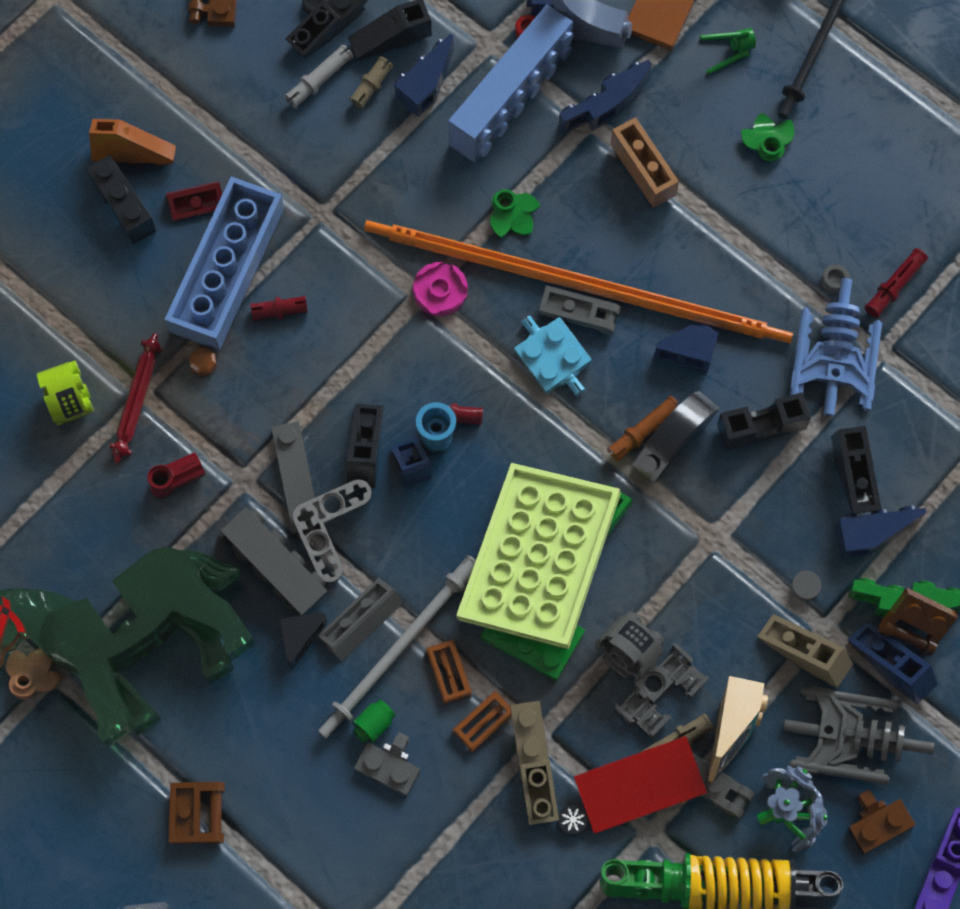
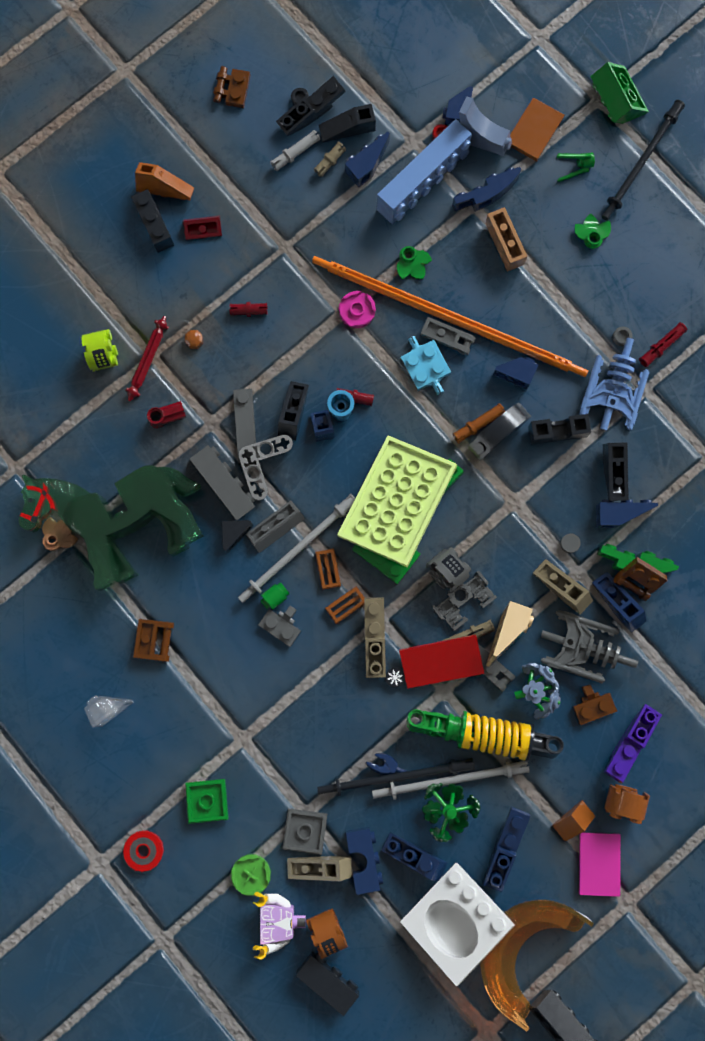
camera: 10 degrees right, 10 degrees up
(224, 263) = (216, 274): medium blue brick -> none

